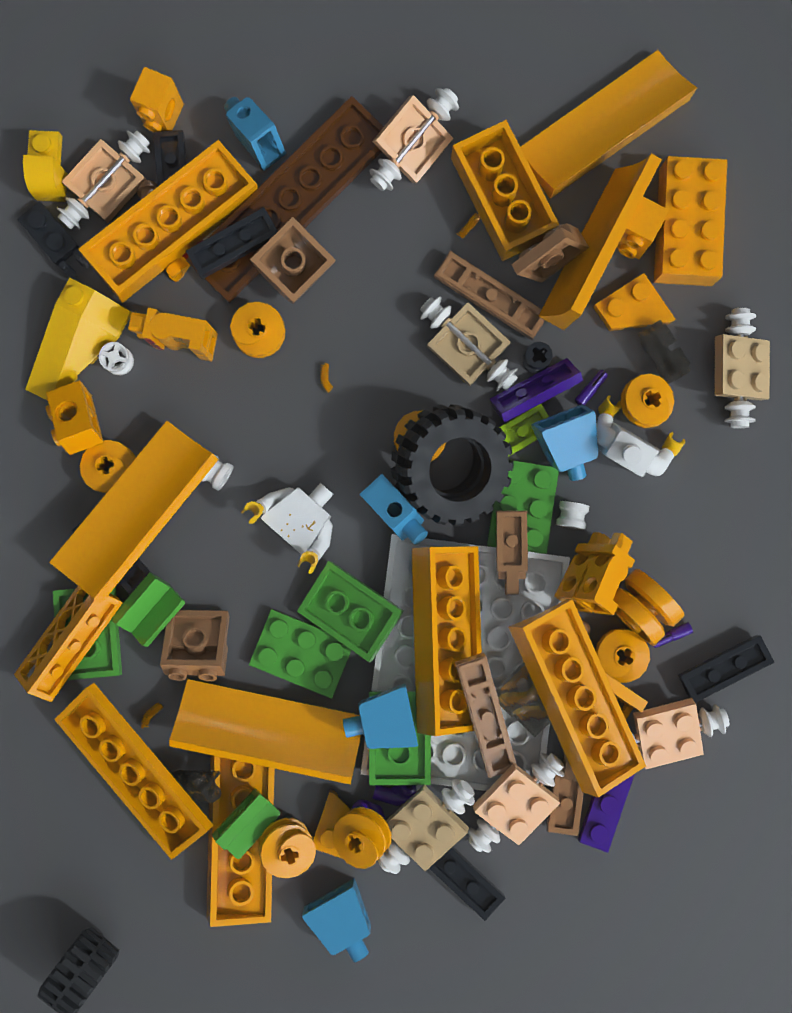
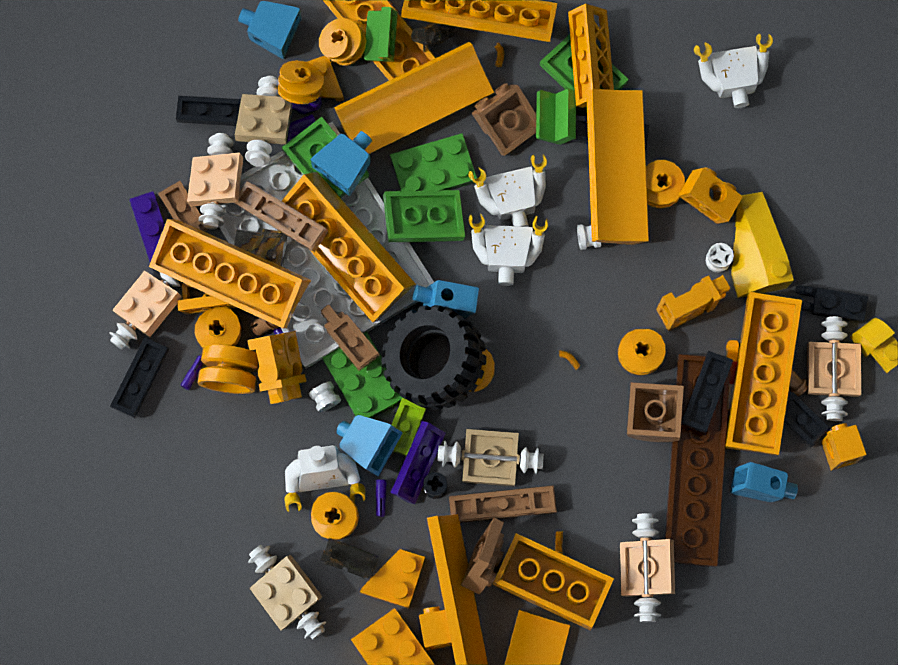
camera: 140 degrees right, 10 degrees down
(250, 568) = (512, 193): none -> white torso

